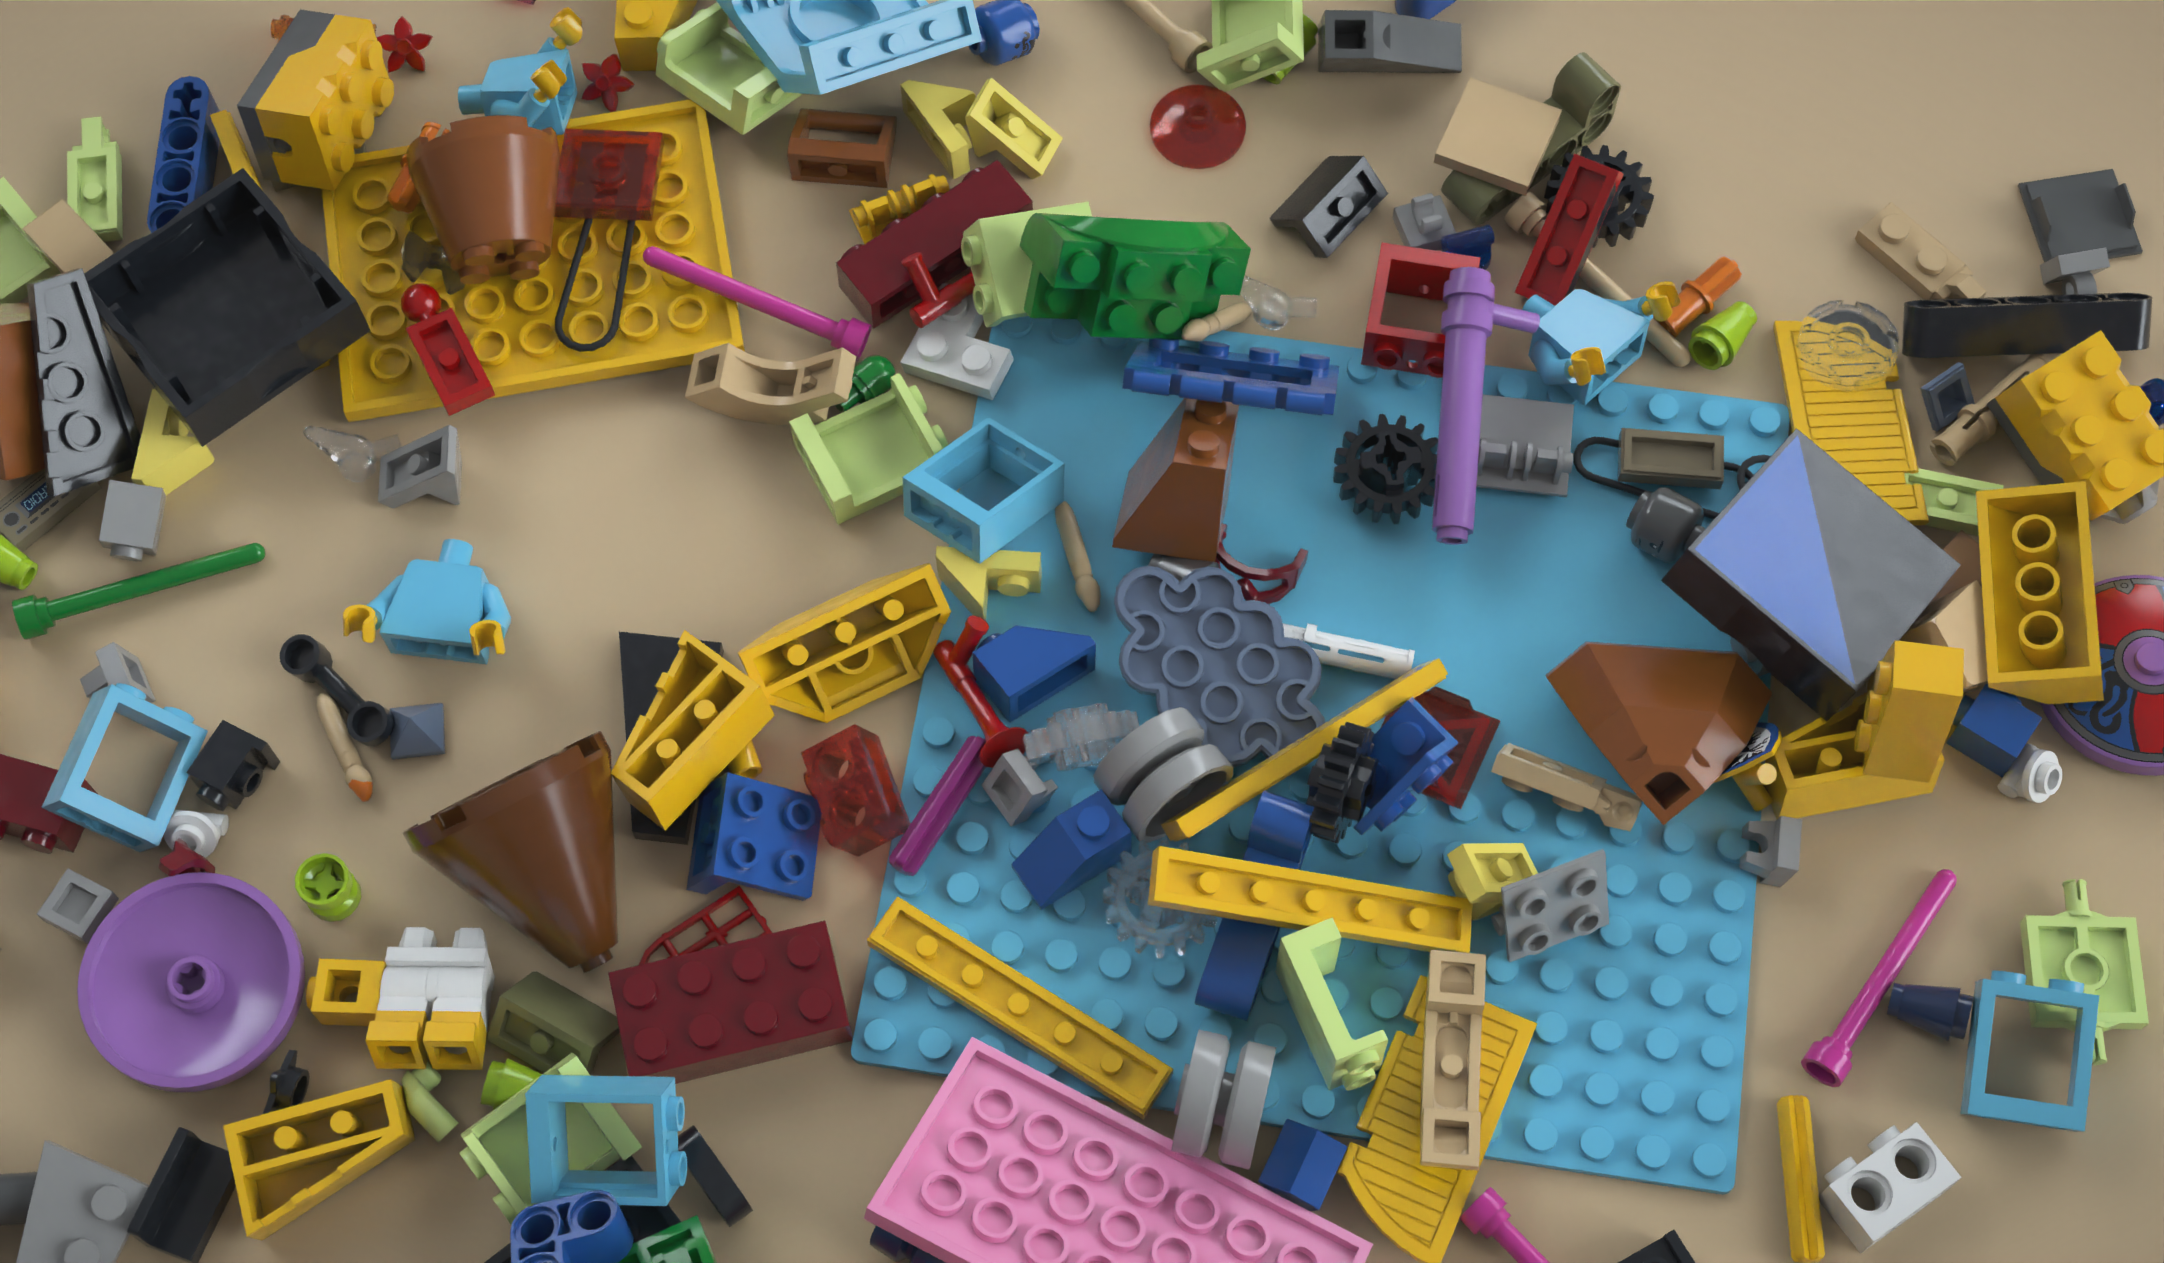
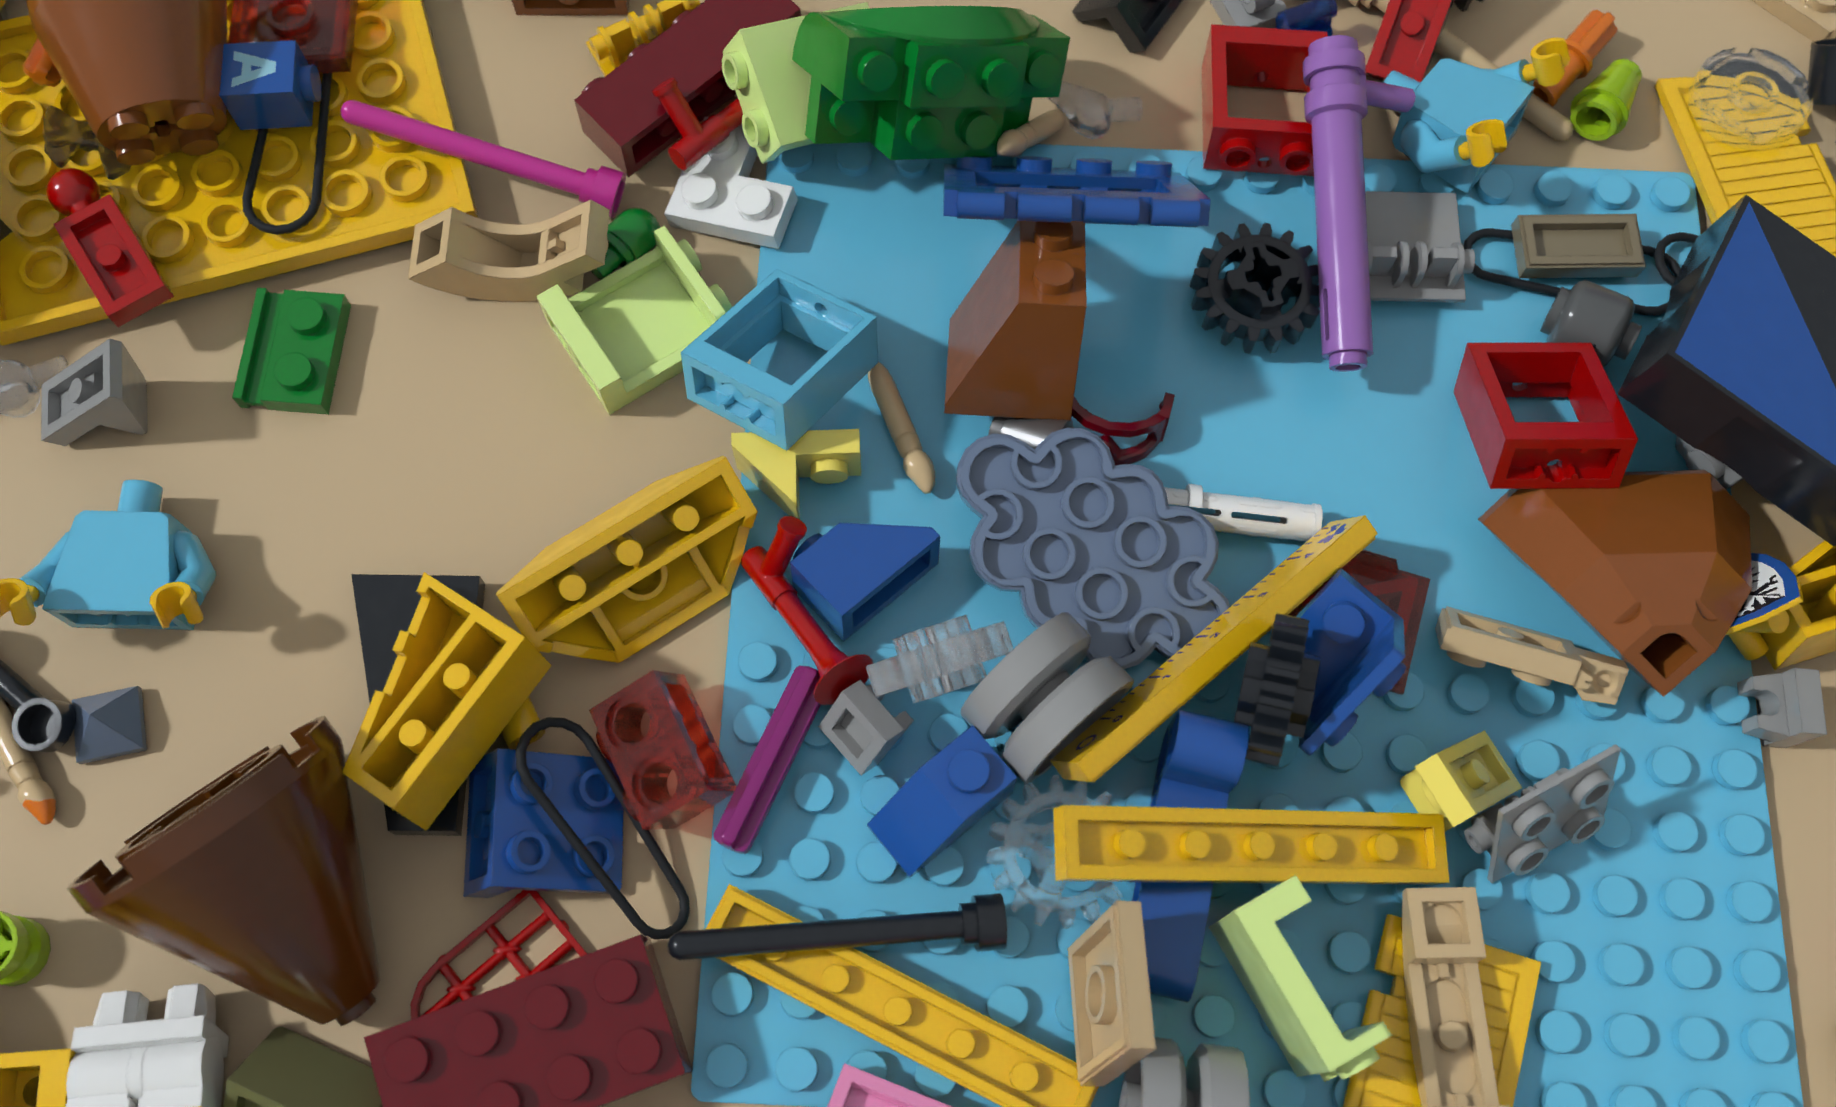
camera: 10 degrees left, 5 degrees up
(583, 448) = (292, 351): none -> green plate
(587, 228) = (269, 85): none -> blue brick
(784, 856) = (578, 845): none -> black piece
(1087, 944) = (975, 923): none -> black piece
(1181, 998) = (1111, 995): none -> tan tile
(1577, 620) = (1517, 453): none -> red window

